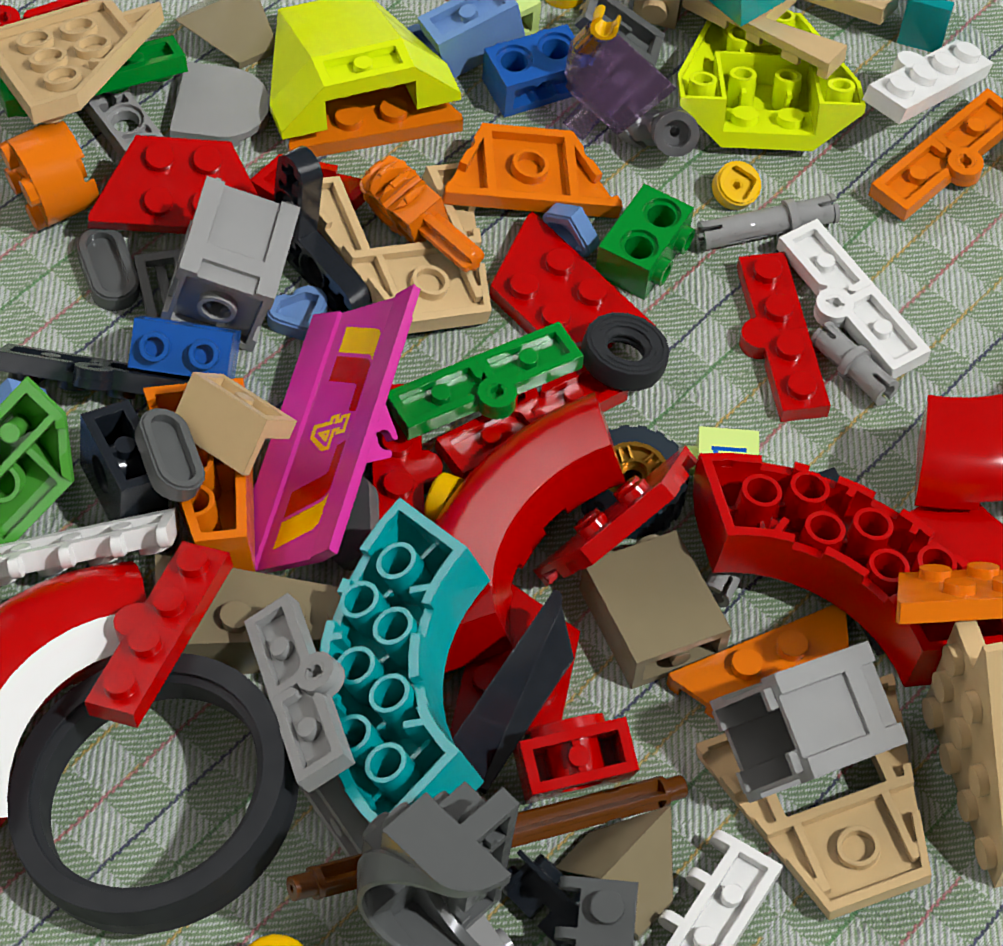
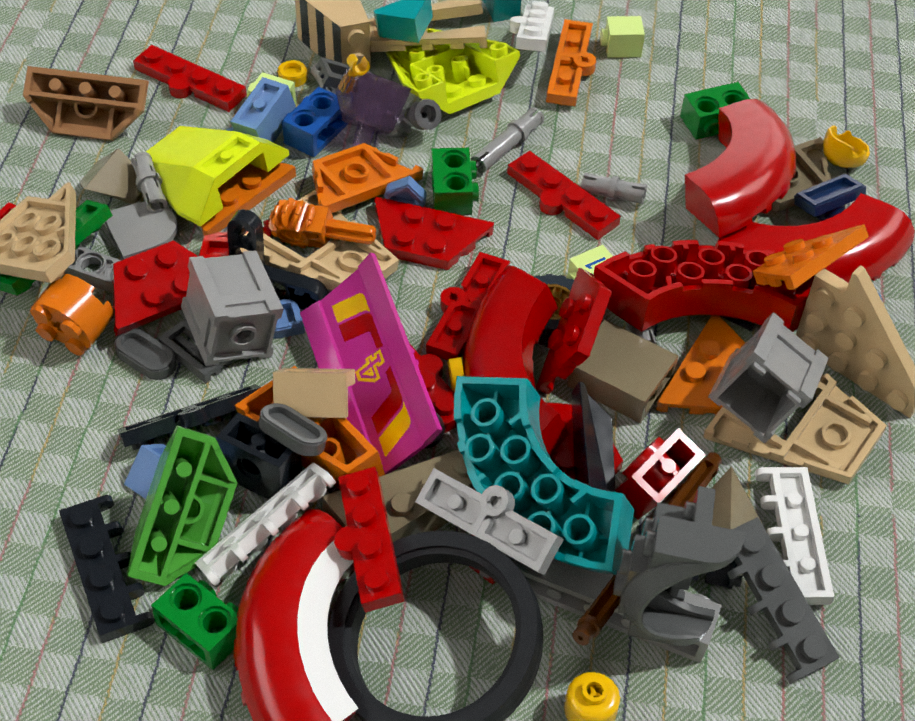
camera: 30 degrees left, 5 degrees down
(183, 347) = (237, 371): blue brick -> none
(262, 49) = (148, 182): none -> light grey pin
(484, 381) = (436, 292): green hinge -> none
(618, 372) = (493, 253): black tyre -> none
(736, 185) = (475, 129): yellow tile -> none
(852, 299) = (584, 156): white hinge -> none

